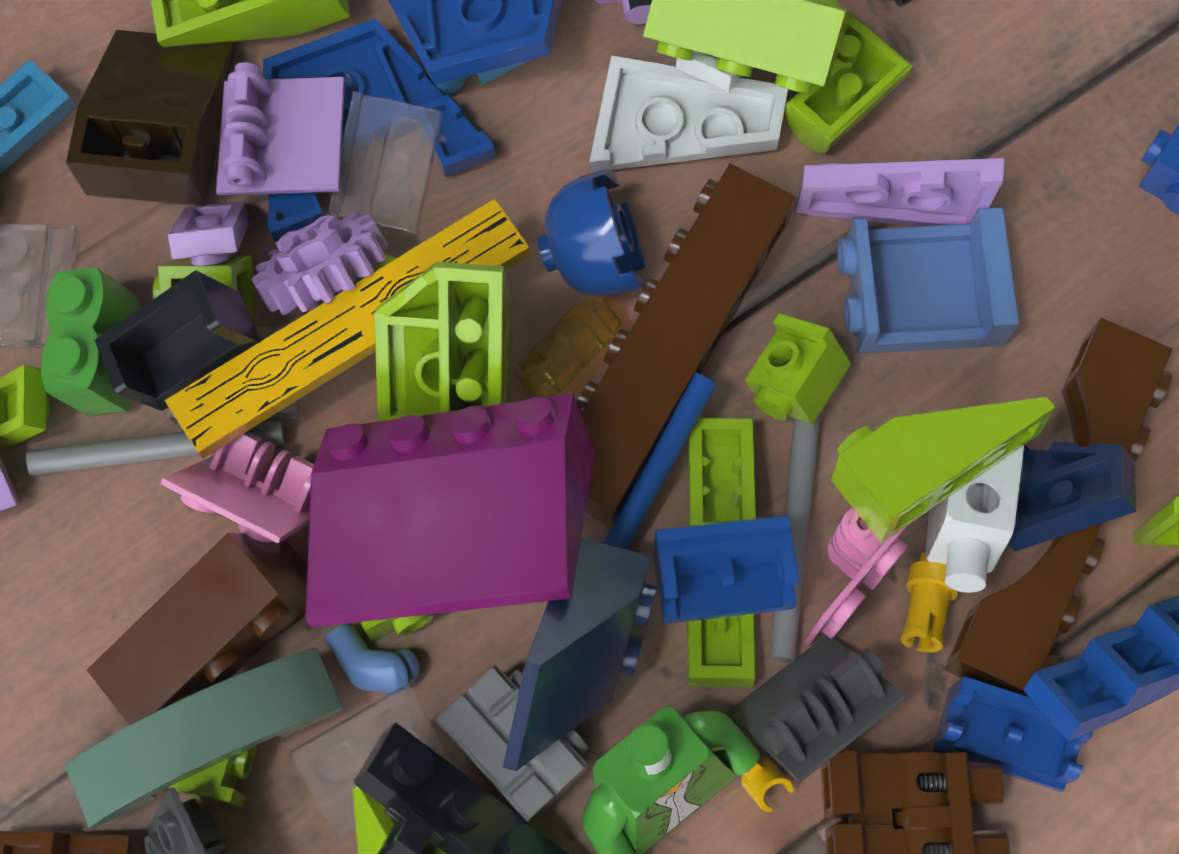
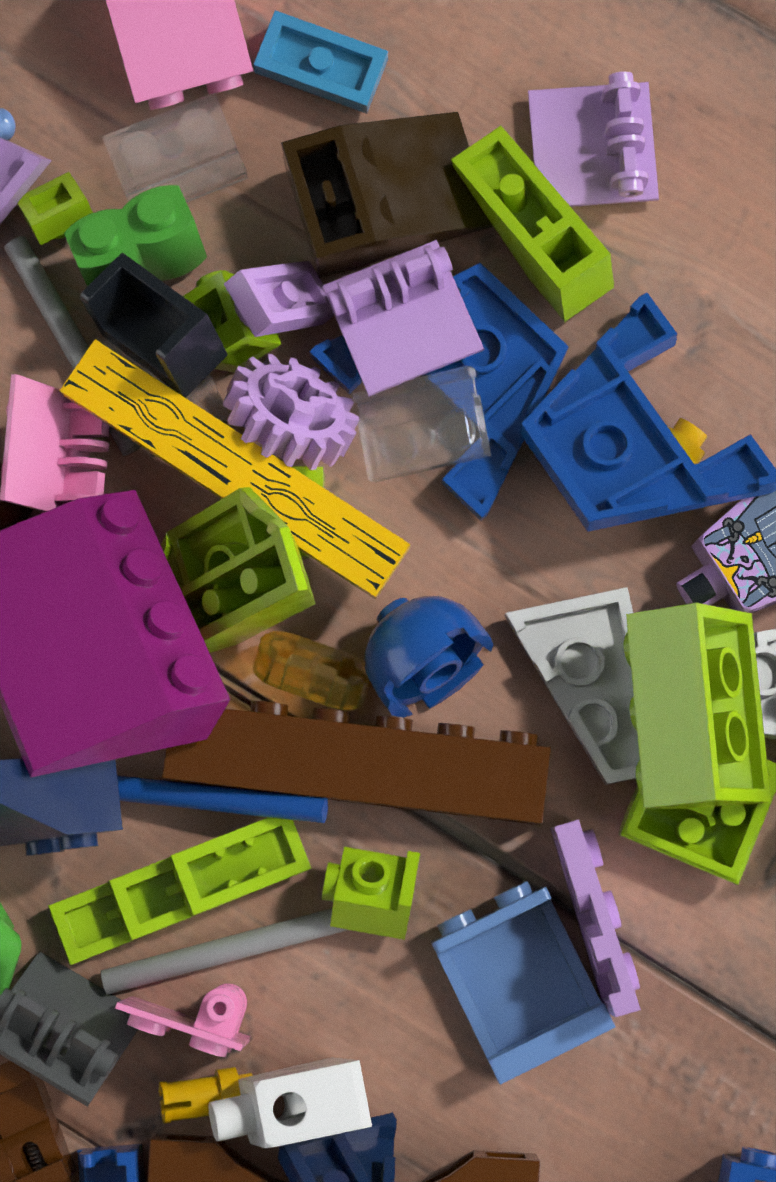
camera: 70 degrees right, 10 degrees up
(725, 569) = (145, 899): blue hinge -> none
(927, 457) = (286, 1038): lime slope -> none

